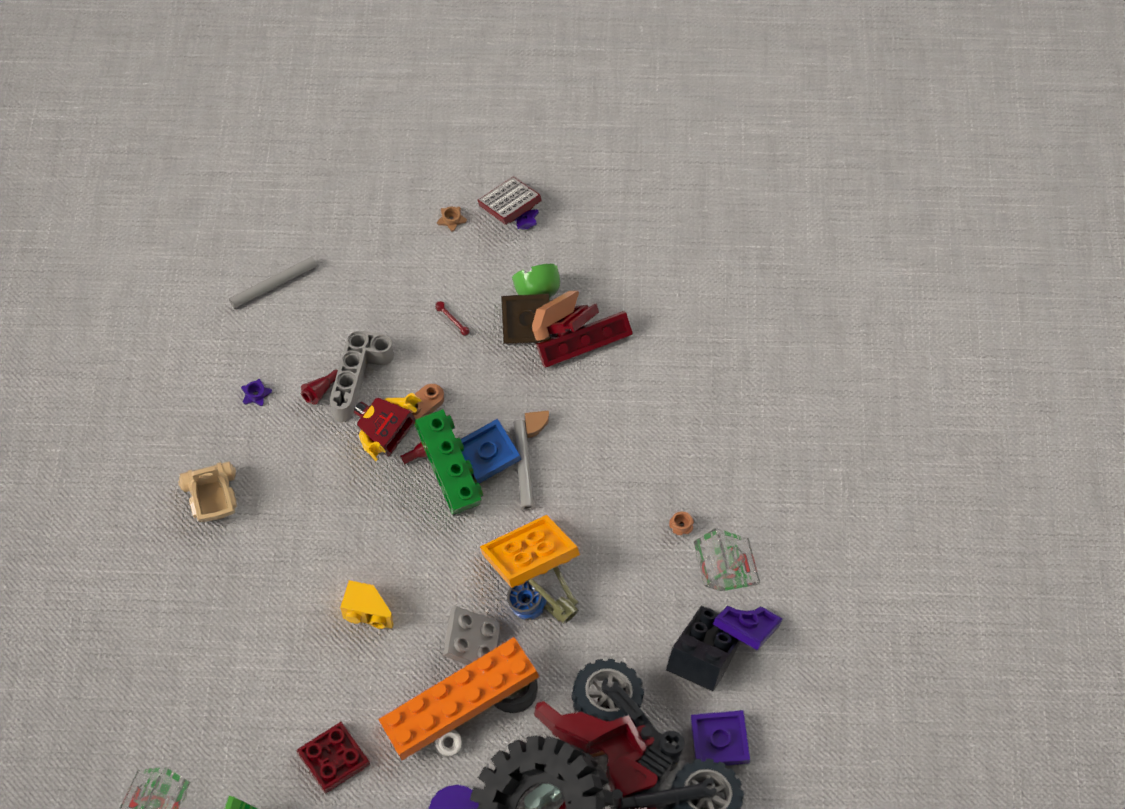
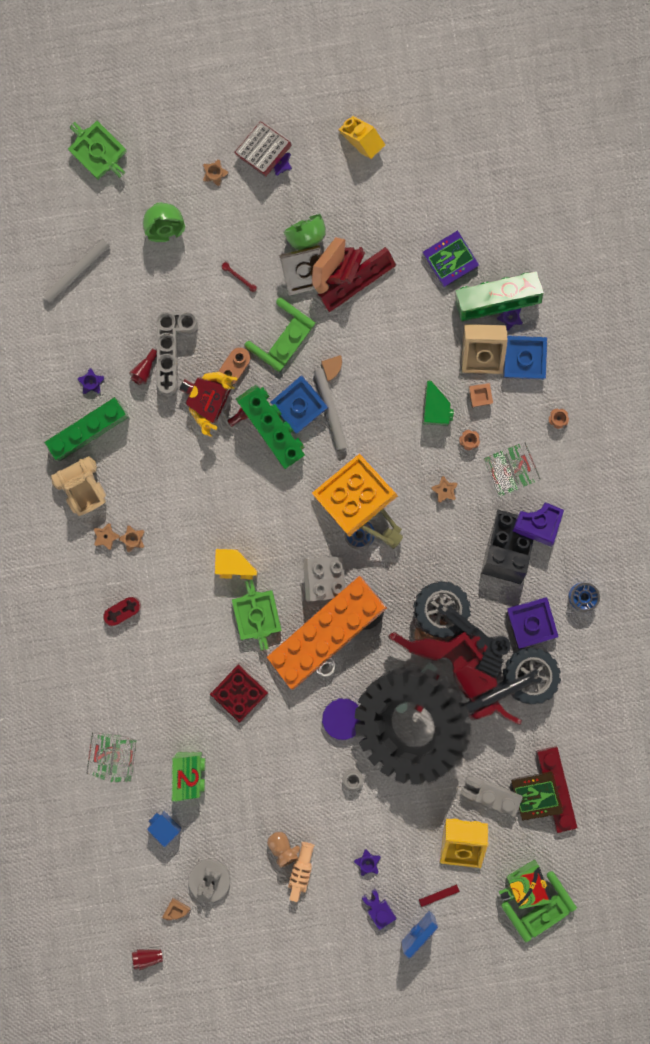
camera: 10 degrees left, 30 degrees up
(217, 636) = (119, 607): none -> dark red beam
(223, 558) = (107, 530): none -> medium nougat plate
(236, 434) = (86, 429): none -> green brick
(253, 555) = (130, 532): none -> medium nougat plate
(330, 175) = (97, 150): none -> bright green plate
(379, 668) = (256, 615): none -> bright green plate
(381, 248) = (162, 222): none -> bright green cylinder
(490, 389) = (288, 341): none -> bright green plate
(621, 207) = (362, 136): none -> yellow slope
(636, 577) = (449, 494): none -> medium nougat plate
(648, 481) = (436, 407): none -> green slope
(696, 338) = (450, 259): none -> tile
(703, 478) = (480, 395): none -> nougat plate
(716, 431) = (484, 348): none -> tan slope
(743, 380) = (498, 296): none -> brick
(754, 401) = (504, 317): none -> dark purple plate
(763, 448) = (525, 357): none -> blue plate
(791, 710) = (592, 595): none -> wheel
(797, 514) = (559, 413): none -> nougat plate

